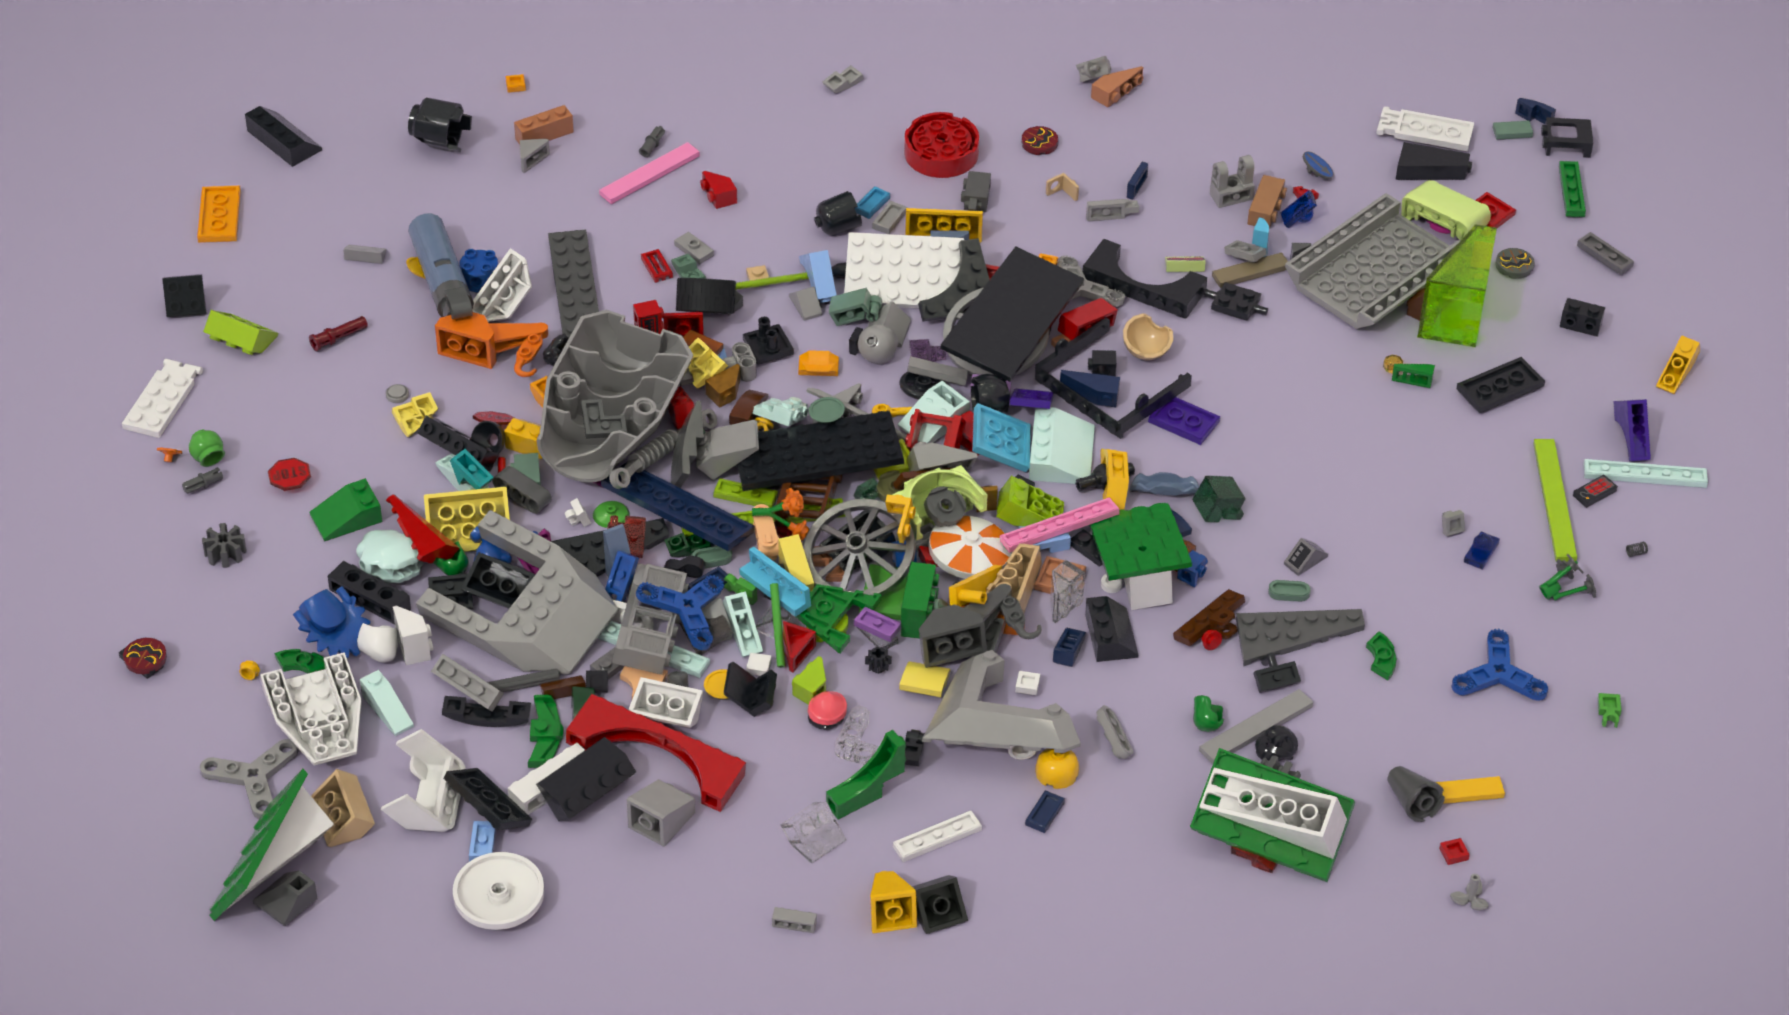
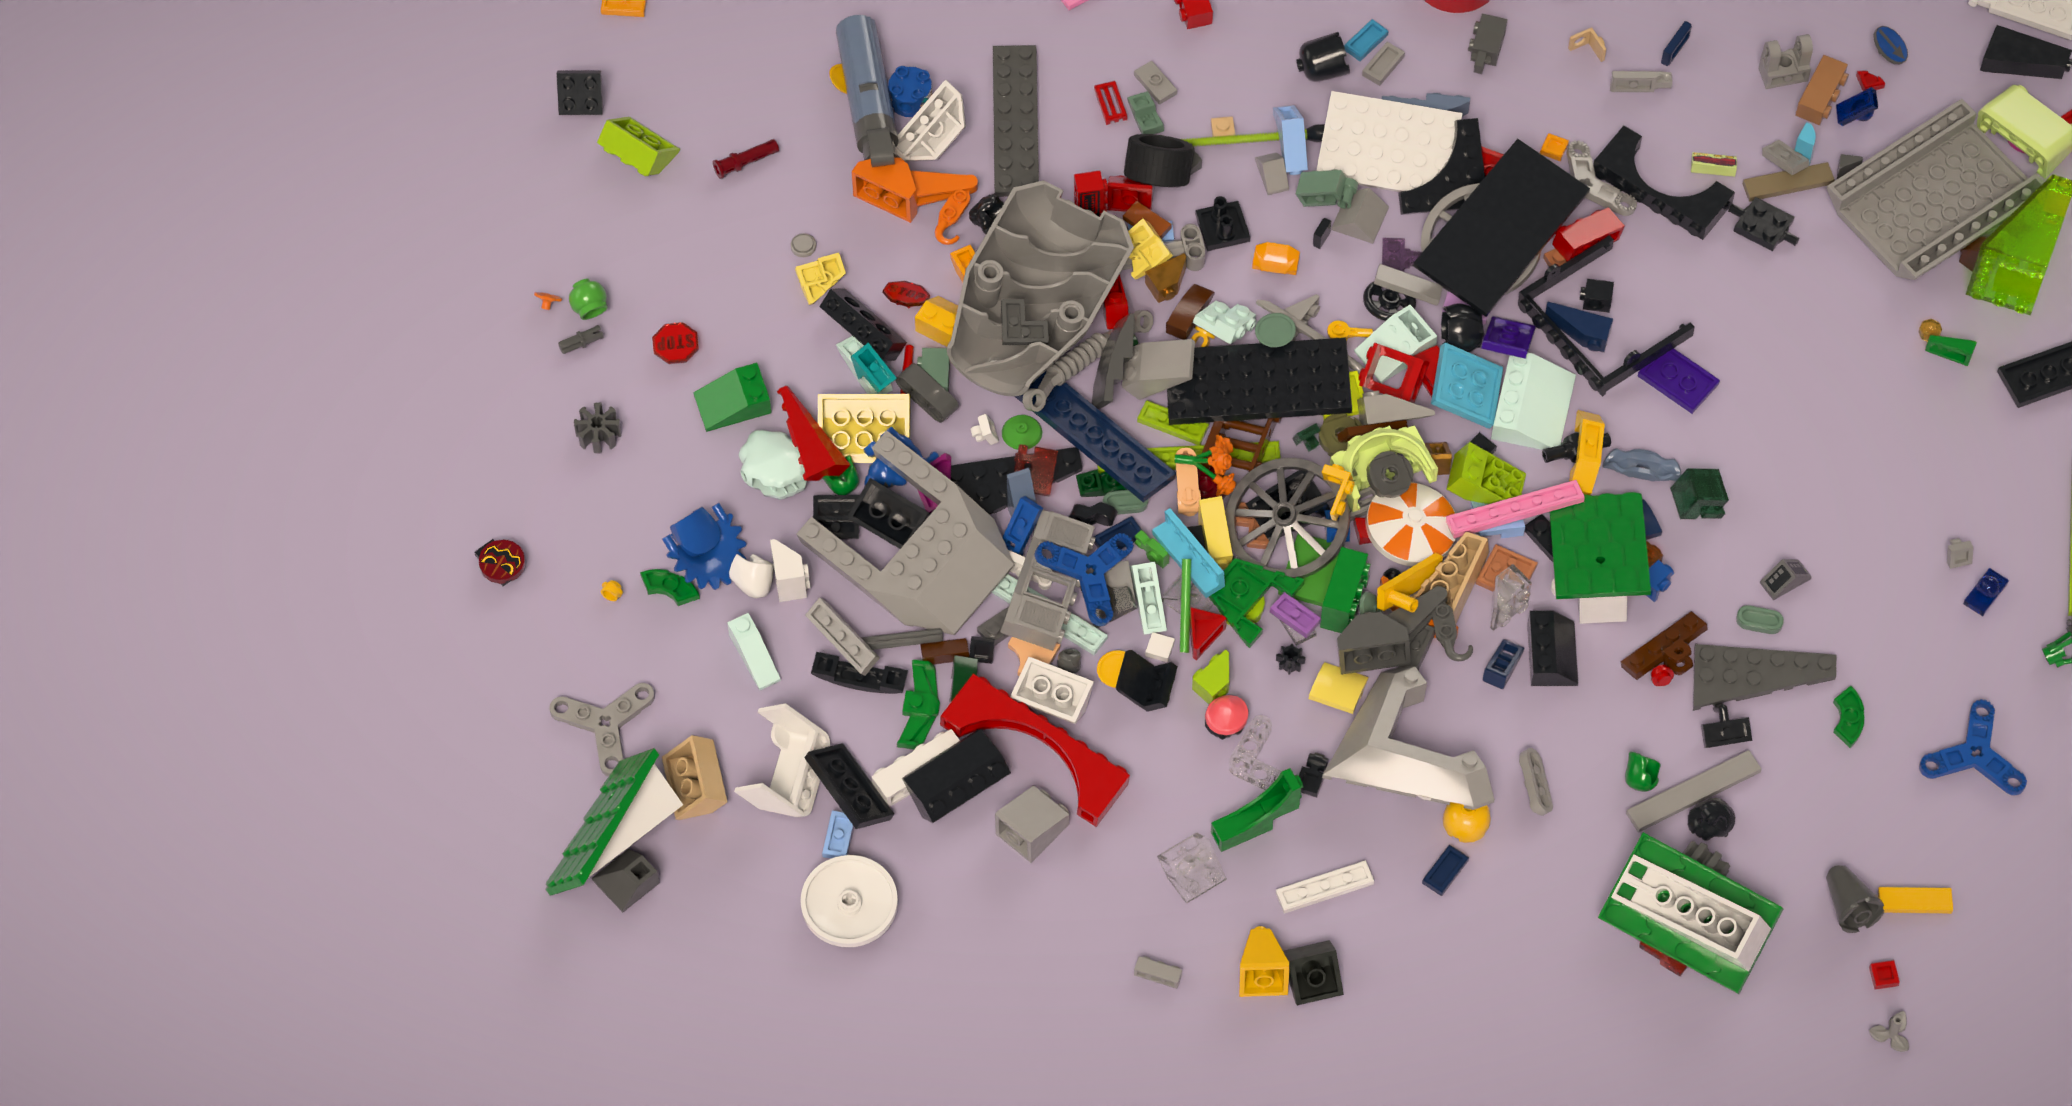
camera: 10 degrees right, 15 degrees up
(161, 398) = (545, 223): white hinge -> none
(317, 709) = (679, 653): white wedge -> none
(364, 253) = (785, 50): light grey slope -> none
(369, 591) = (751, 517): black brick -> none
(484, 431) = (890, 316): black piece -> none
(877, 344) = (1345, 242): light grey cylinder -> none
(923, 221) = (1419, 79): yellow slope -> none
(1027, 683) = (1450, 707): white plate -> none
(1145, 338) = (1651, 268): tan cylinder -> none

